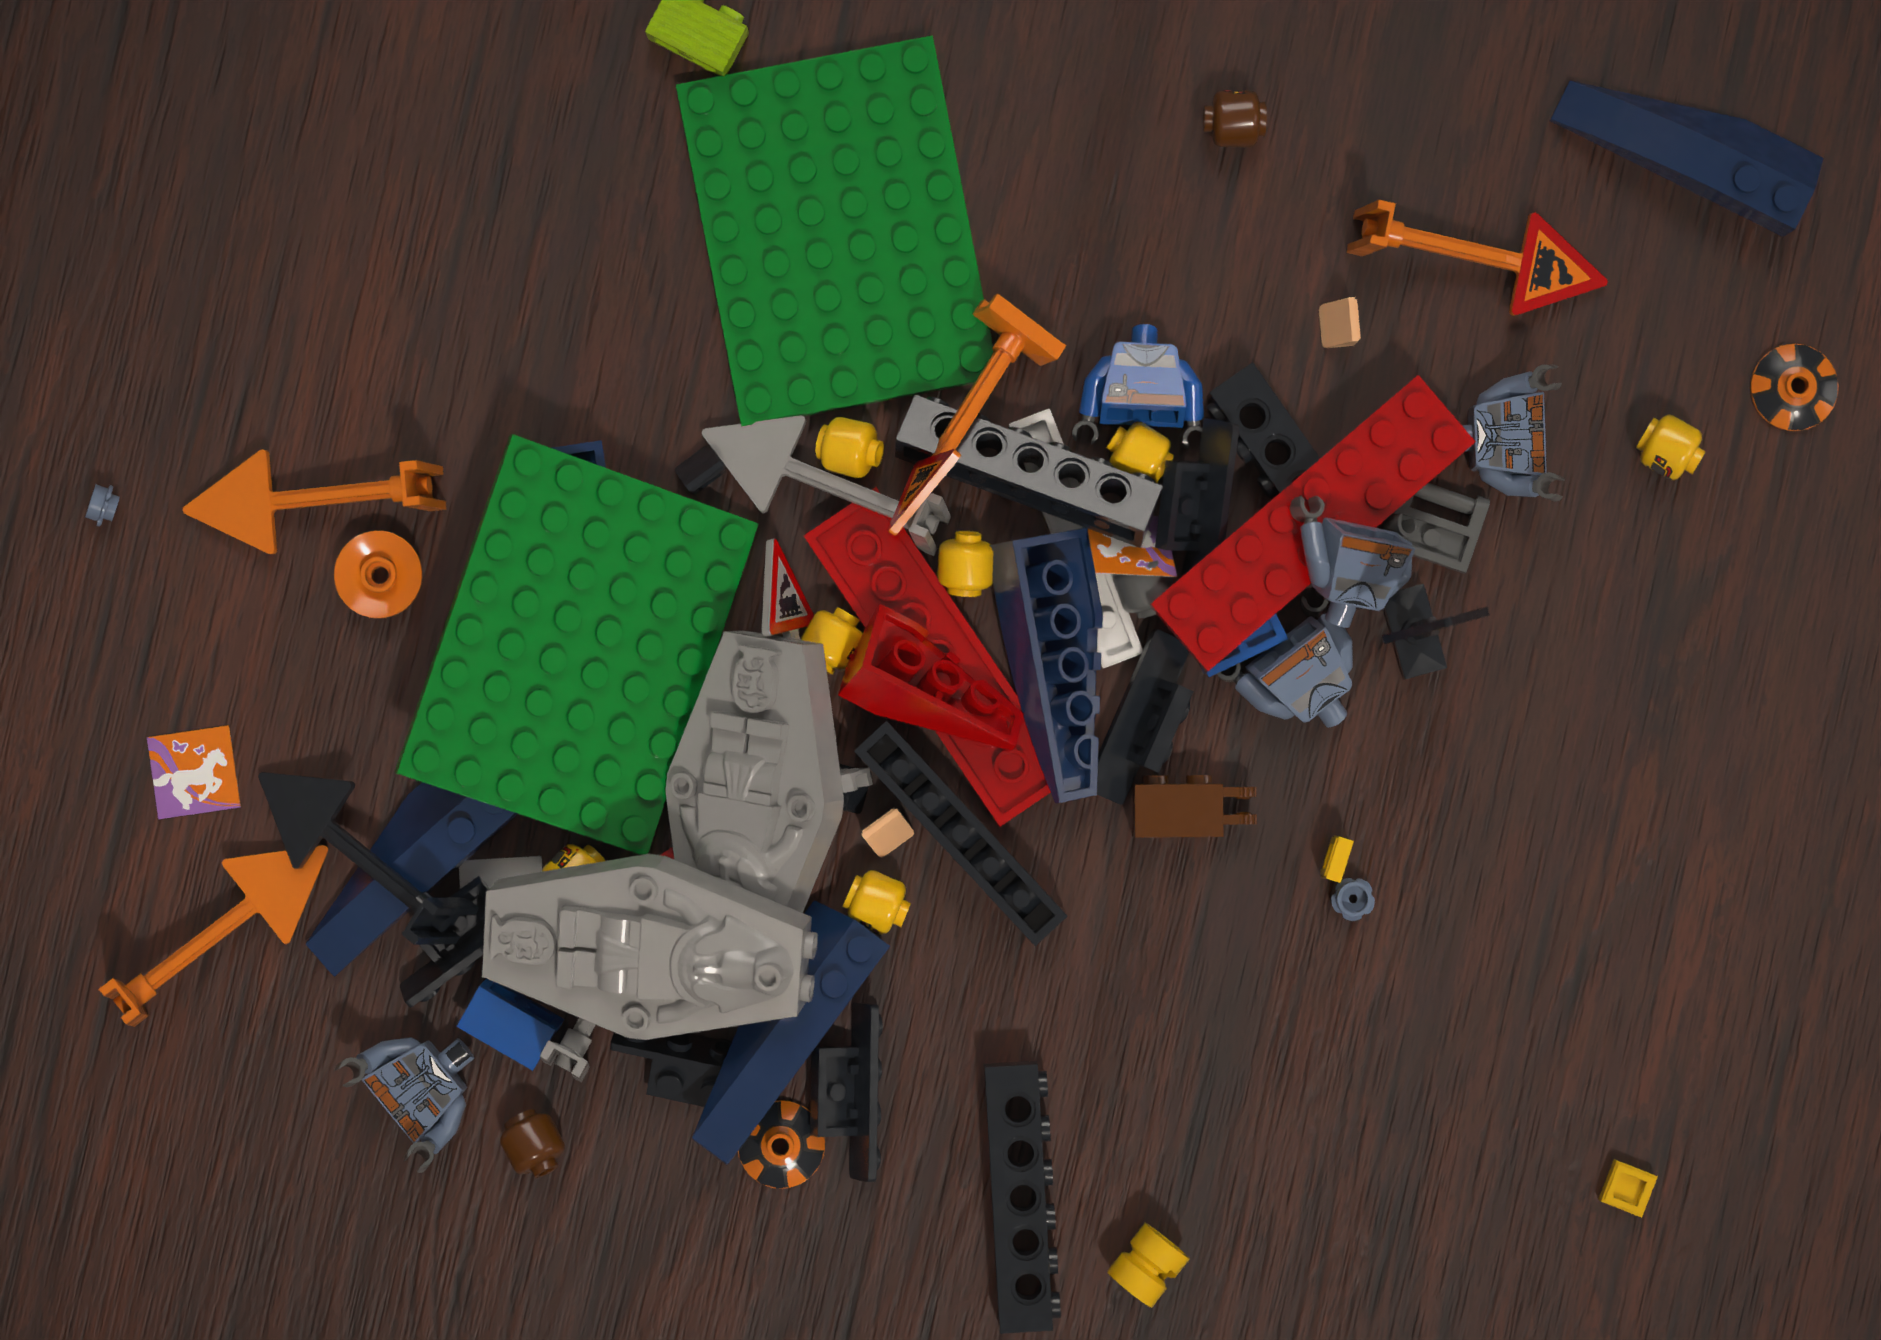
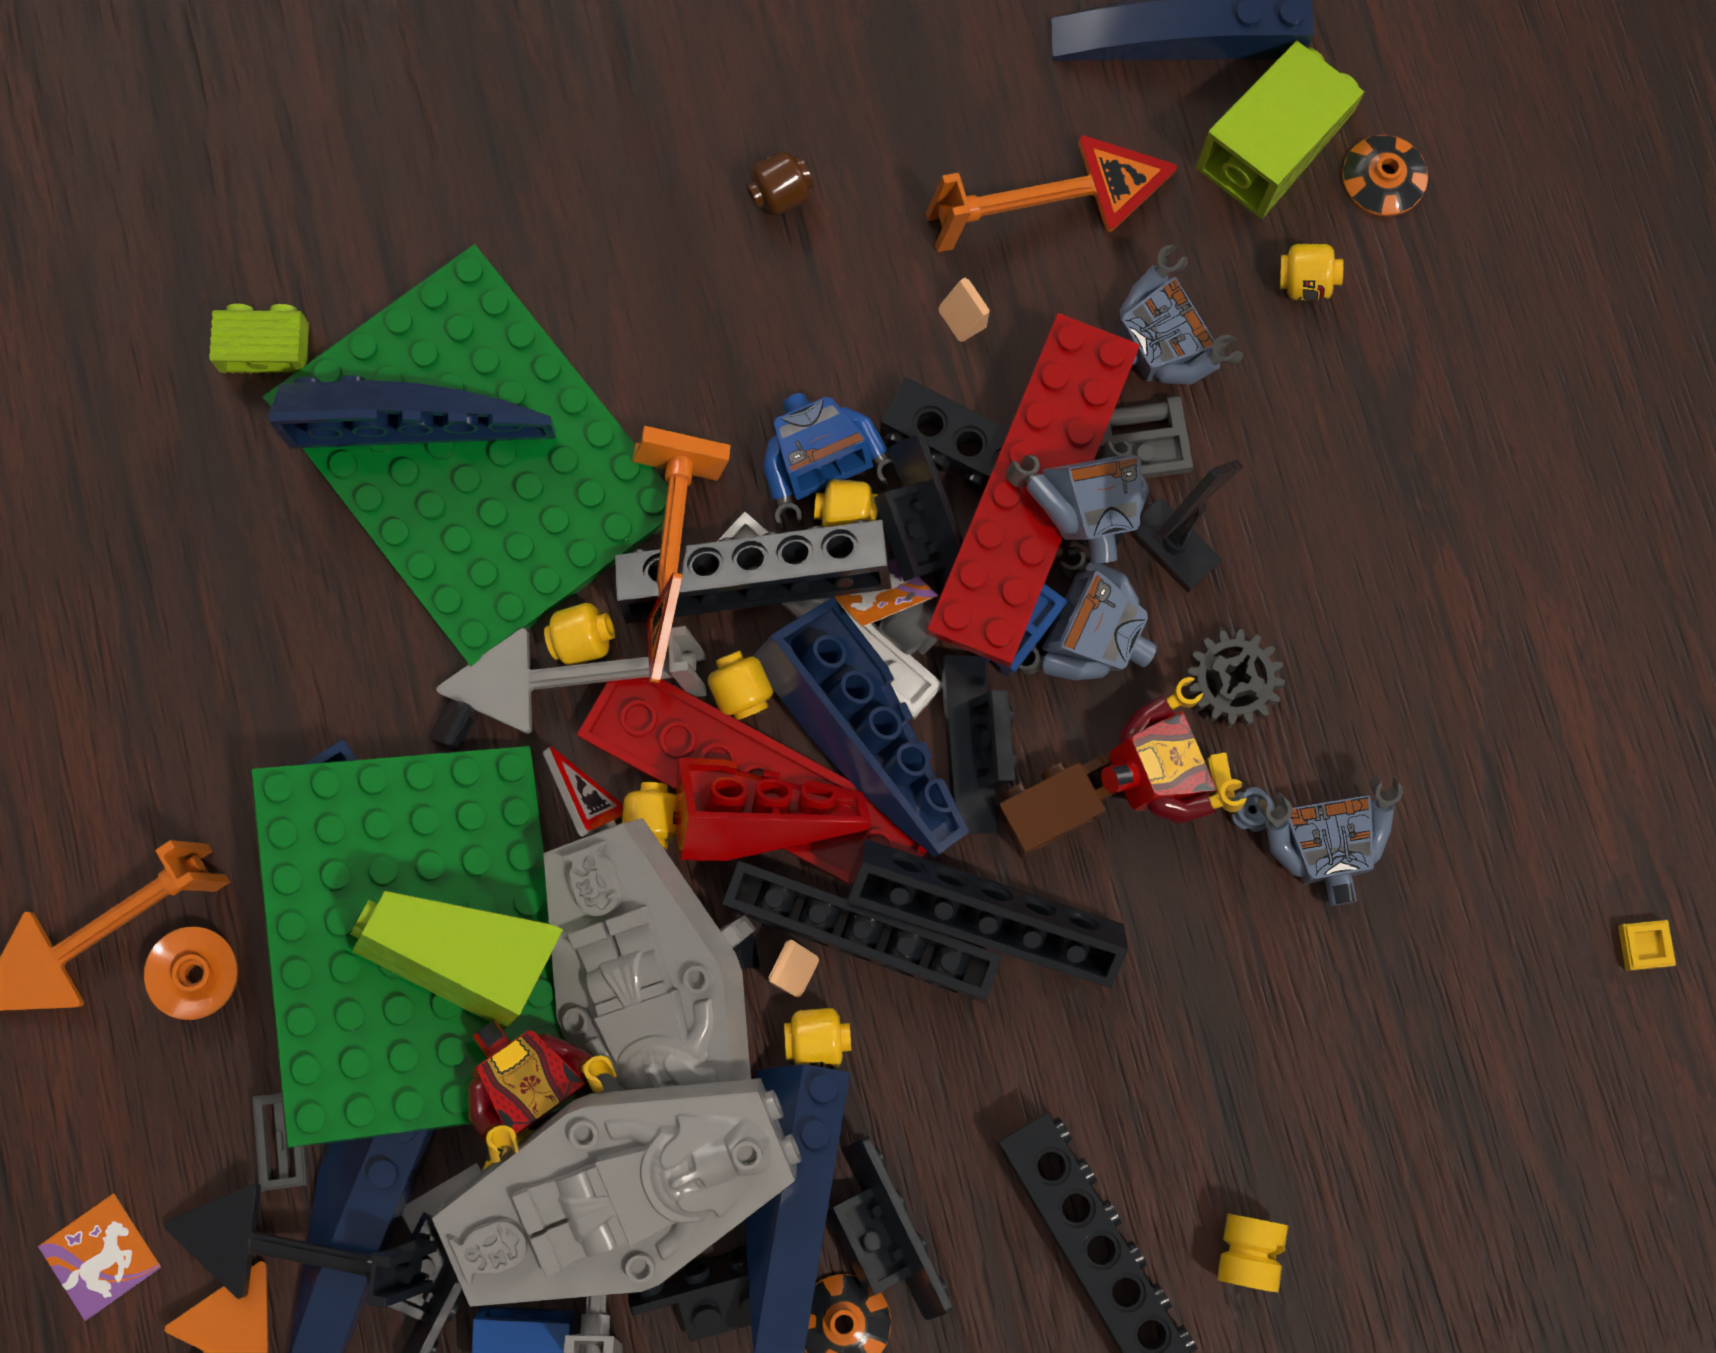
camera: 30 degrees left, 10 degrees down
(370, 751) = (263, 1148): none -> dark grey tile
(615, 688) = (457, 952): none -> lime slope
(615, 818) = (525, 1082): none -> torso
(784, 166) = (396, 413): none -> dark blue wedge
(1074, 873) = (987, 913): none -> black brick
(1294, 823) = (1163, 766): none -> torso
(1406, 960) = (1332, 838): none -> torso
(1410, 795) = (1250, 686): none -> dark grey gear
(1719, 297) = (1278, 128): none -> lime slope

